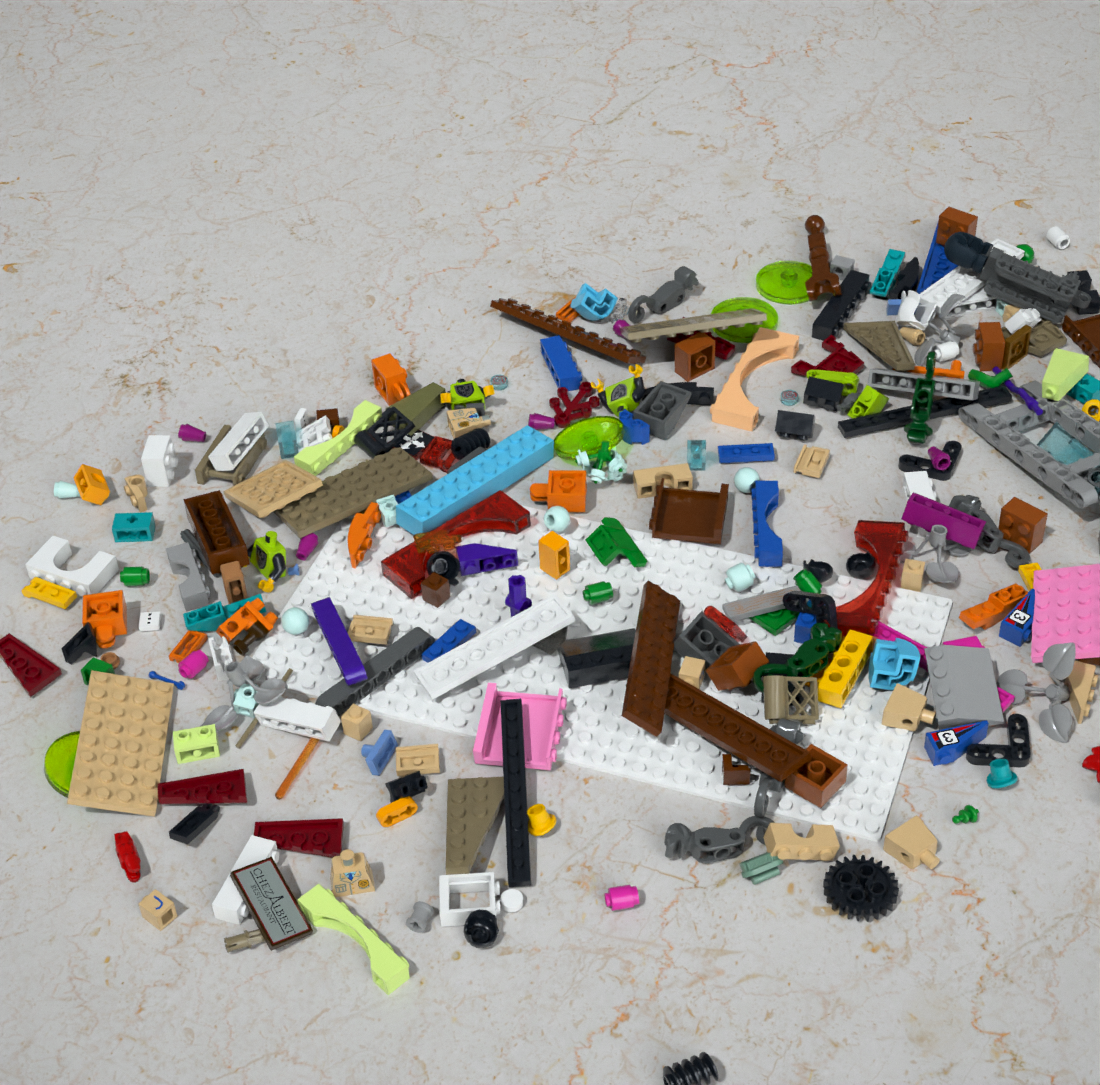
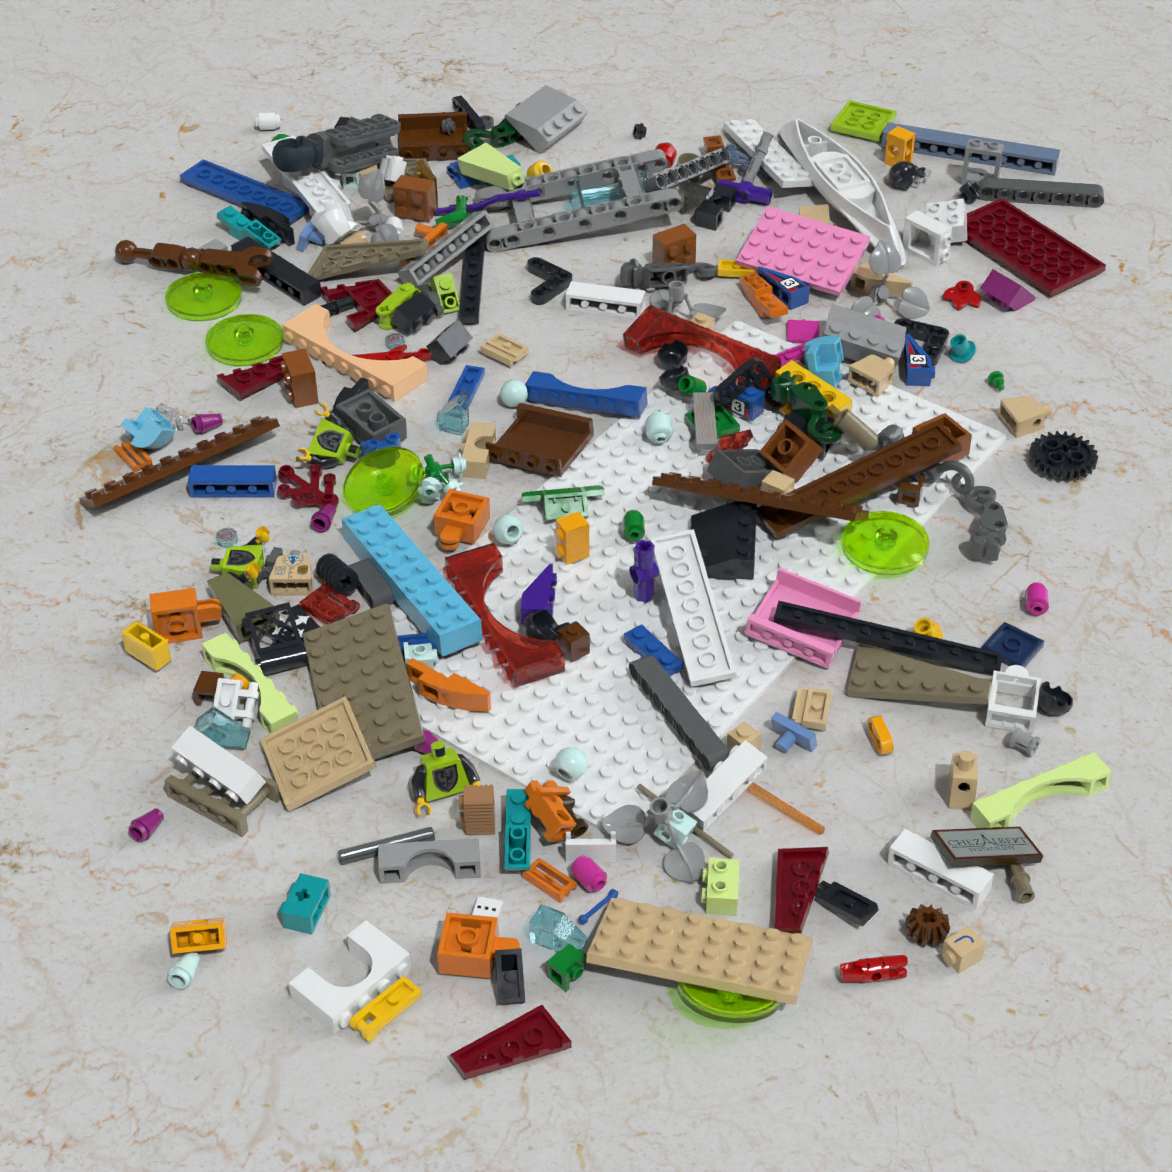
camera: 75 degrees left, 0 degrees up
(111, 658) = (542, 955): medium nougat plate -> none
(131, 657) = (555, 930): none -> clear light blue slope
(135, 576) = (402, 912): green brick -> none
(137, 490) = (229, 894): tan plate -> none
(159, 460) = (198, 854): white brick -> none
(180, 881) = (927, 925): none -> reddish brown gear
(216, 530) = (379, 810): reddish brown brick -> none
(301, 419) = (189, 711): white tile -> none
(313, 837) = (890, 814): dark red wing -> none
(339, 641) = (629, 726): dark purple beam -> none
(357, 377) = (146, 645): none -> yellow brick
(370, 629) = (608, 707): tan plate -> none
(406, 786) = (856, 717): black hips -> none
(436, 541) = (518, 616): clear orange bracket -> none
(553, 892) = (1015, 644): none -> dark blue tile
(654, 768) = (885, 543): none -> clear neon green dish
(665, 296) = (170, 373): dark grey animal -> none
(688, 325) = (262, 359): dark tan plate -> none
(761, 867) = (1023, 505): sand green piece -> none
(767, 402) = (396, 354): none -> red sword
(811, 350) = (337, 306): none -> black axle
(819, 843) = (1010, 472): tan arch -> none
(922, 404) = (484, 248): dark green animal -> none
(927, 513) = (655, 283): magenta brick -> none
(939, 458) = (556, 270): magenta cone -> none
(954, 221) = (229, 162): dark orange brick -> none

